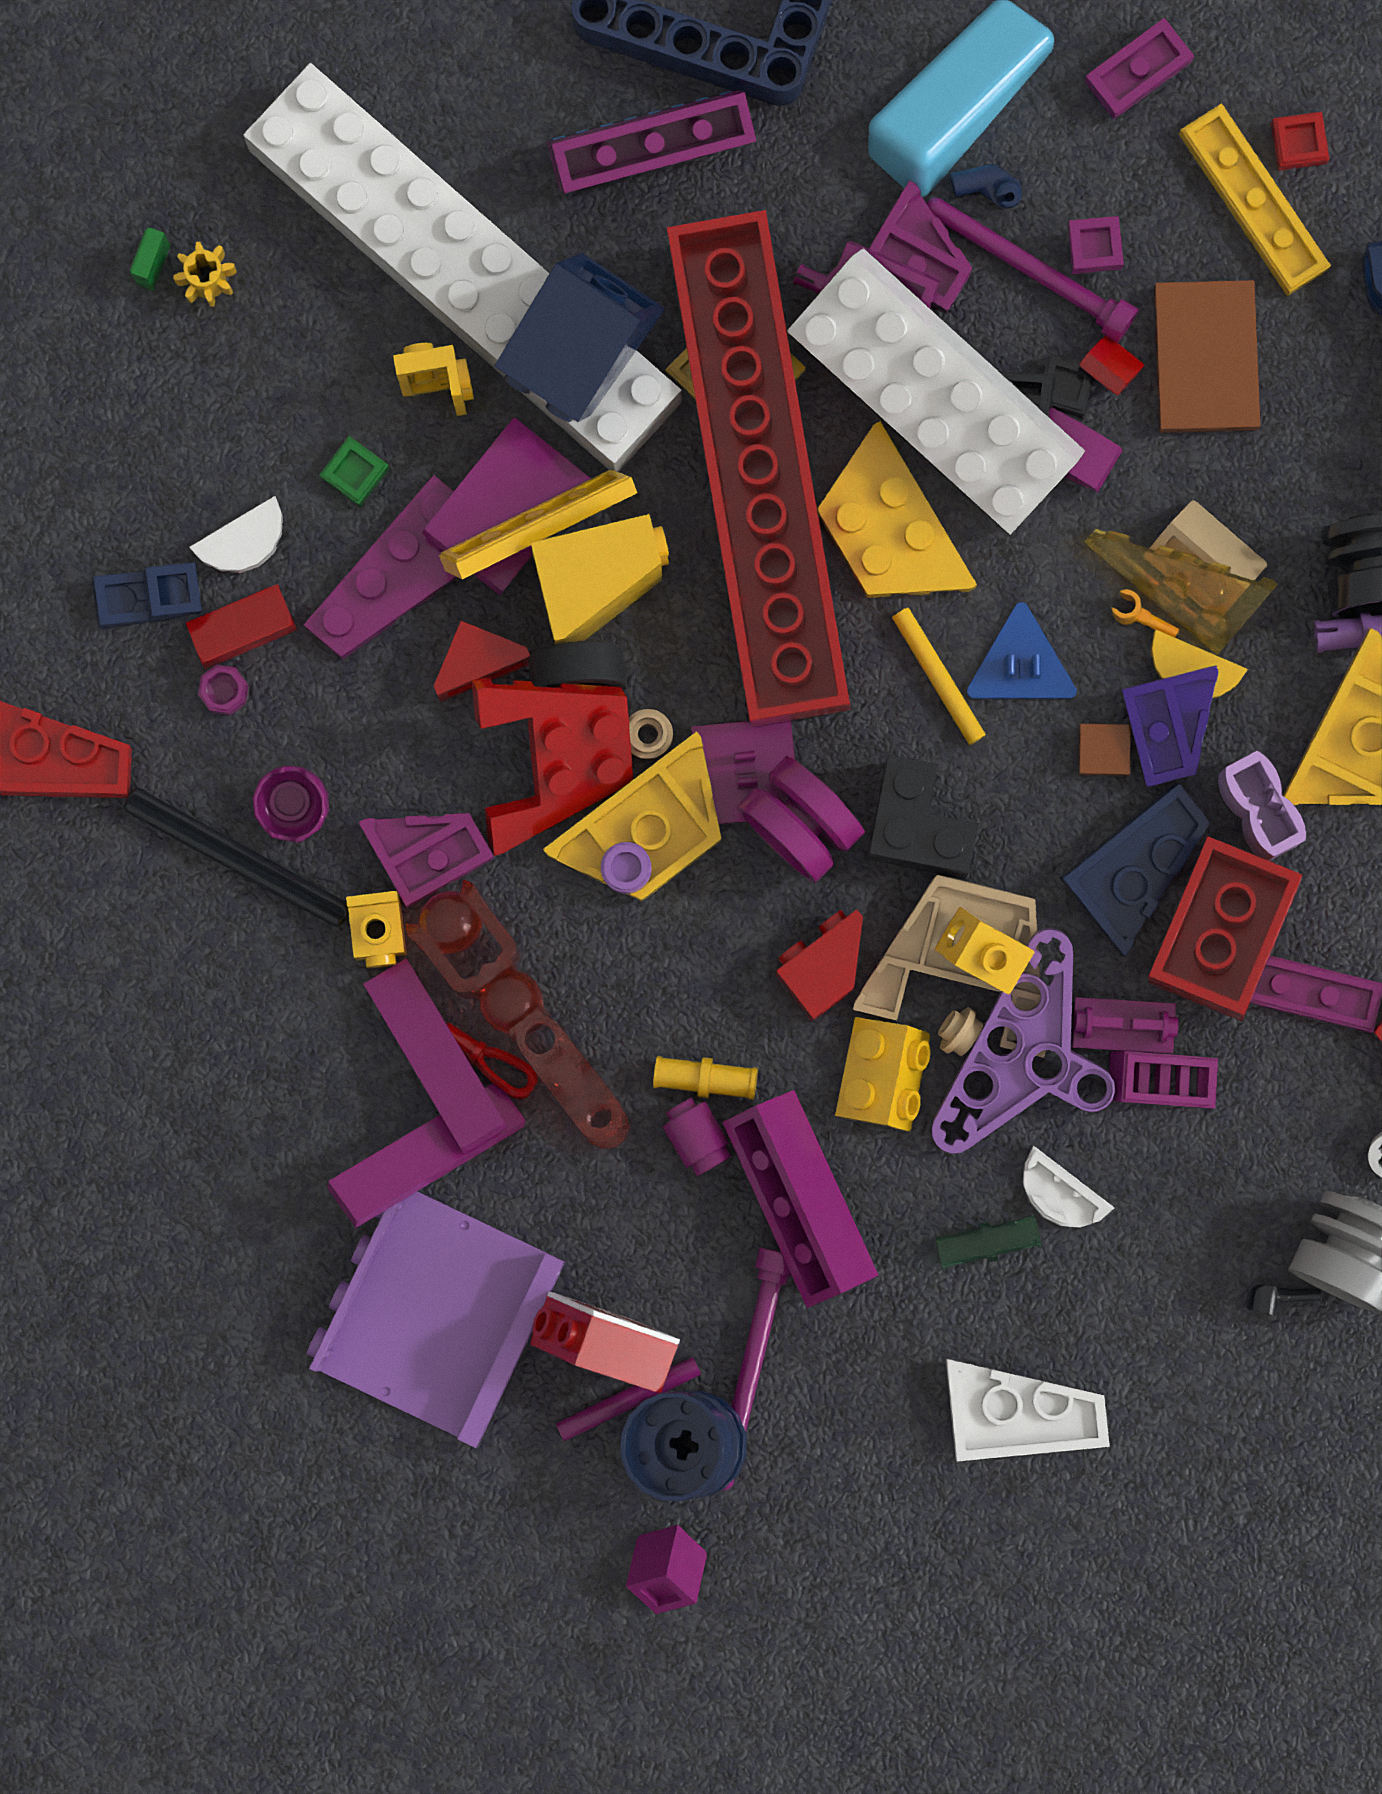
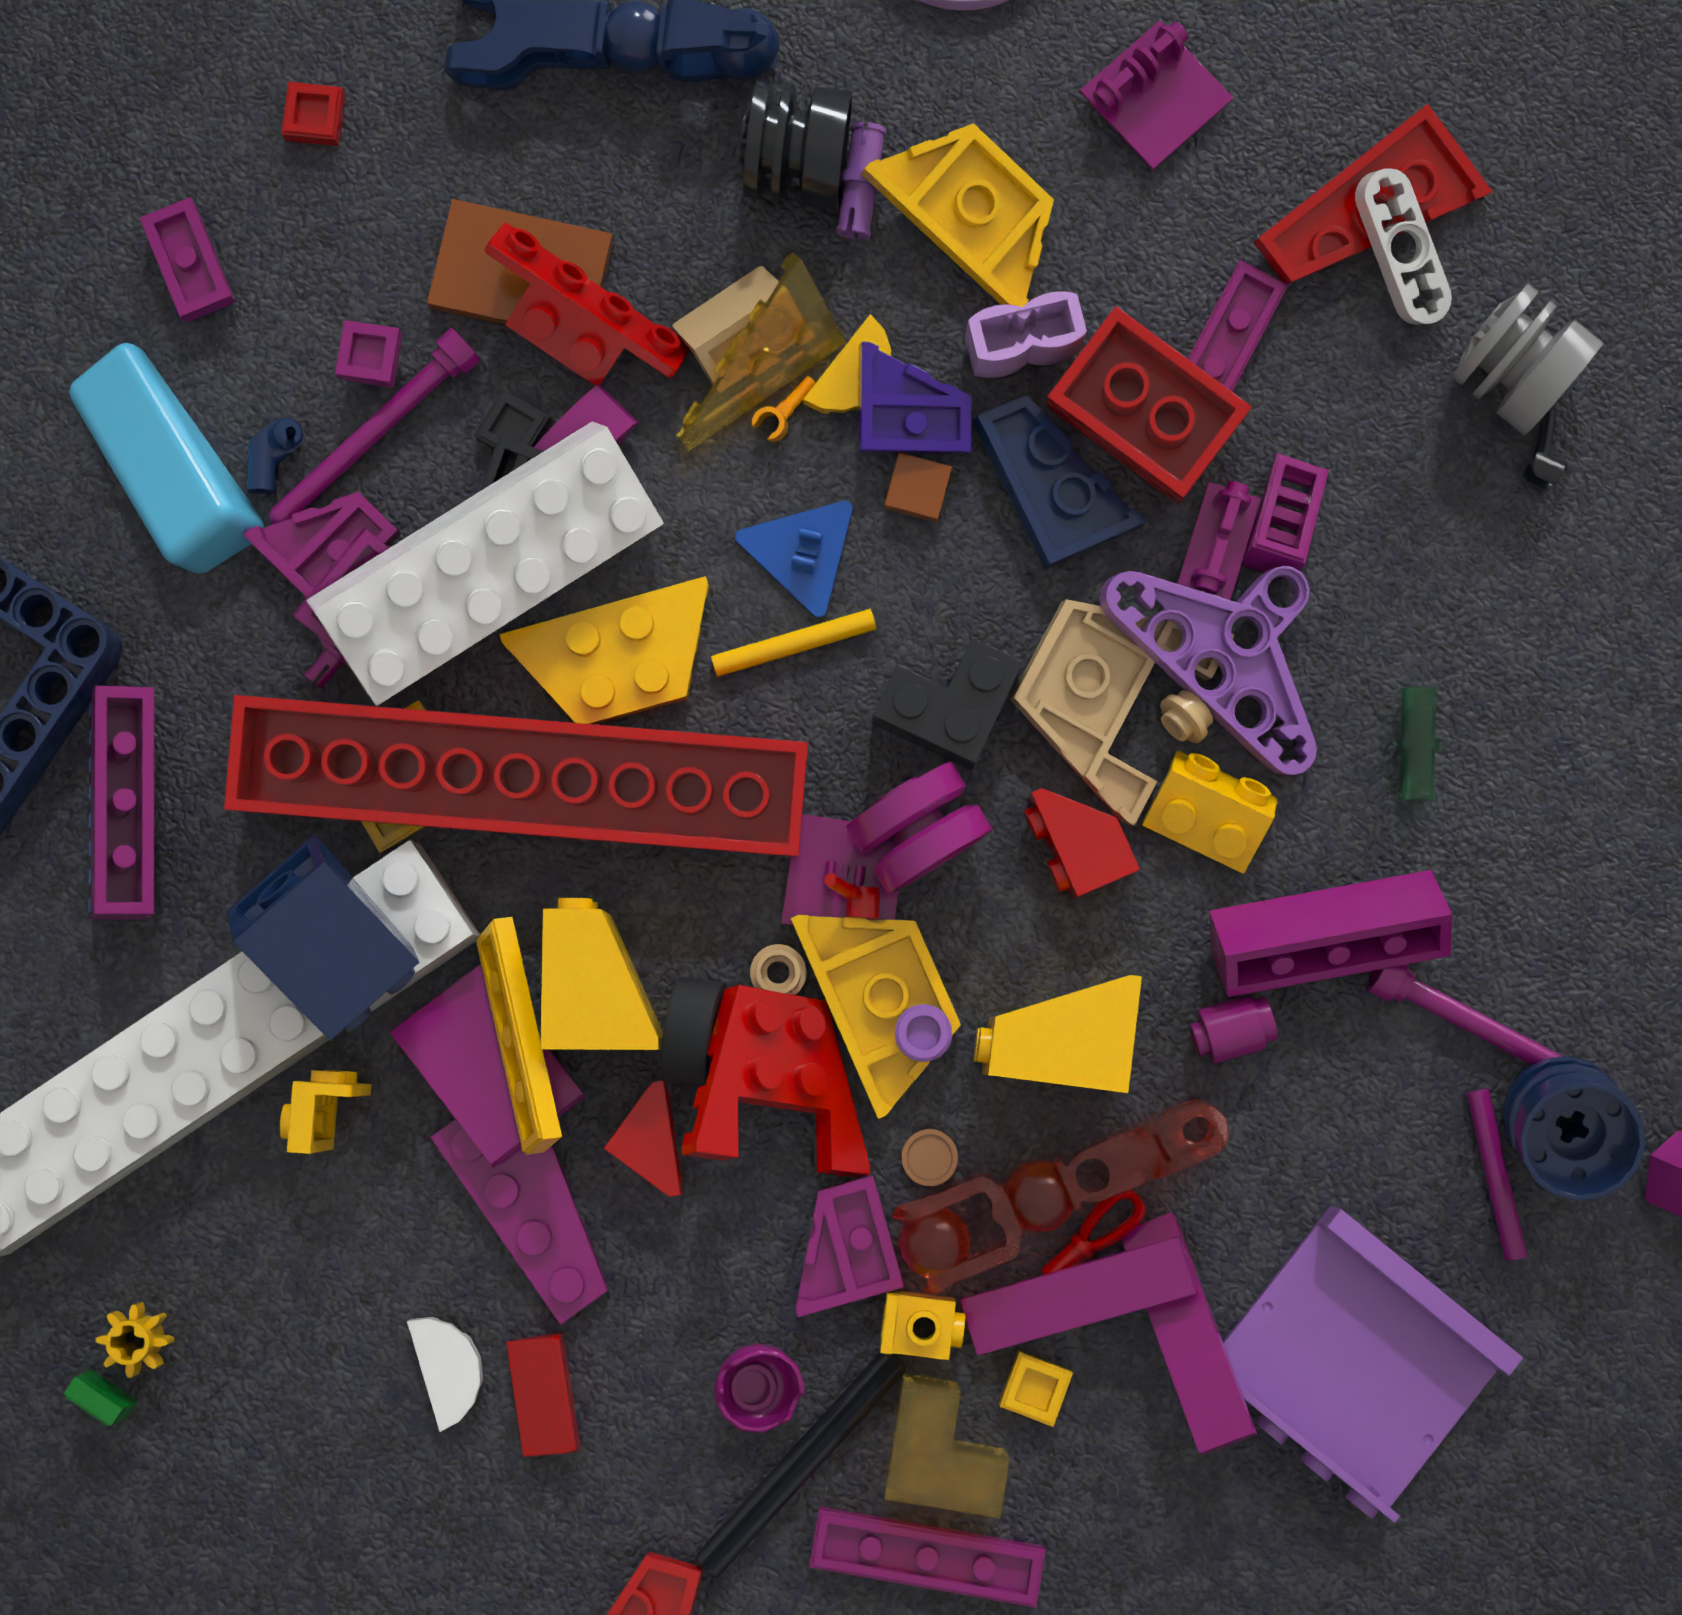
camera: 75 degrees left, 0 degrees up
(146, 595) = (481, 1493): dark blue slope -> none
(183, 984) = (927, 1556): none -> magenta tile
(223, 690) = (610, 1432): magenta tile -> none
(263, 961) = (932, 1467): none -> clear yellow brick
(347, 1042) = (1035, 1388): none -> yellow tile
(354, 471) = (402, 1224): green tile -> none
(521, 904) = (929, 1157): none -> medium nougat piece
(604, 1342) = (1445, 1187): piece -> none
(651, 989) = (1067, 1039): none -> yellow slope
(705, 1077) = (1170, 1003): yellow pin -> none
(726, 788) = (860, 900): none -> red hand
(984, 951) = (1113, 667): yellow bracket -> none
(1017, 1415) = (1611, 757): white wing -> none
(1059, 1194) = (1383, 656): white tile -> none
(1111, 365) = (504, 371): red tile -> none
(1176, 413) = (576, 316): none -> red bracket
(1254, 199) = (363, 177): yellow tile -> none

